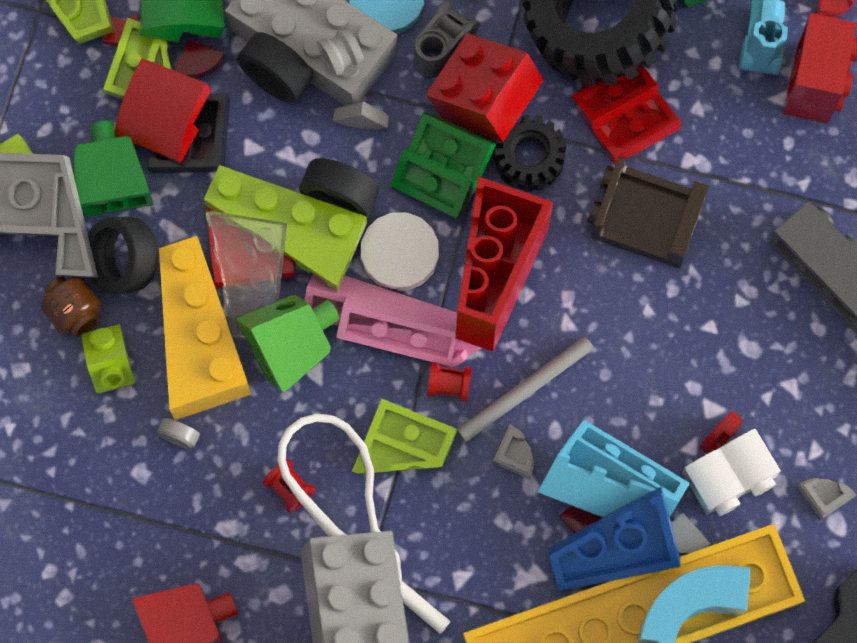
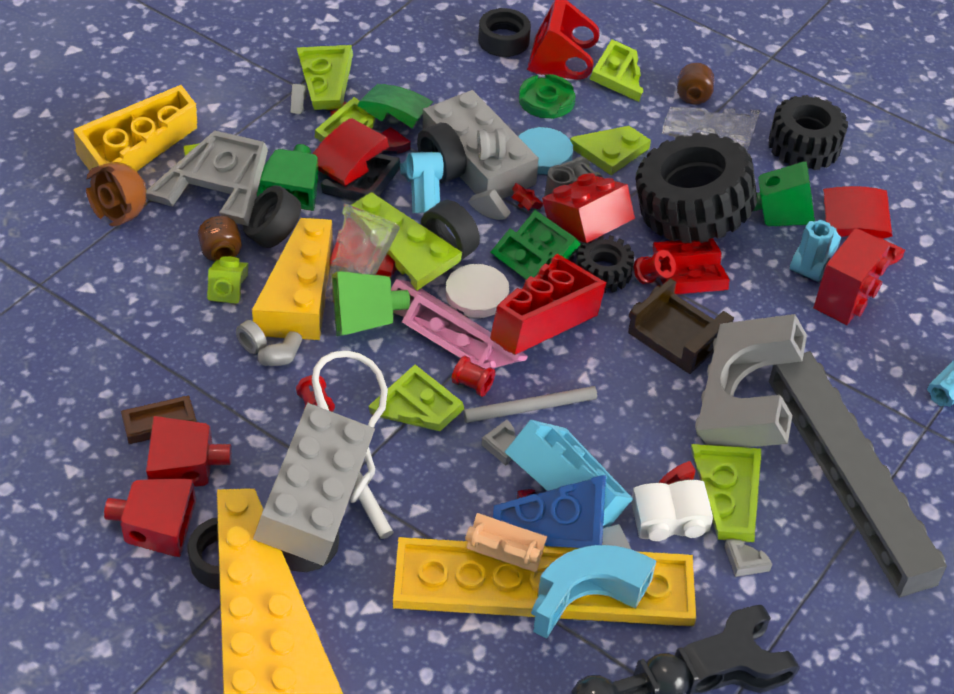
camera: 20 degrees right, 25 degrees down
(53, 37) = (297, 98): none -> light grey tile
(134, 577) = (139, 420): none -> reddish brown tile
(221, 438) = (280, 353): none -> light grey arm
(271, 115) = (424, 173): none -> medium azure piece
(398, 86) = (526, 197): none -> red piece
(576, 599) = (506, 542): none -> light nougat hinge
(584, 141) = (651, 265): none -> red bush
(730, 233) = (737, 352): none -> light grey arch
(781, 411) = (731, 486): none -> lime wing

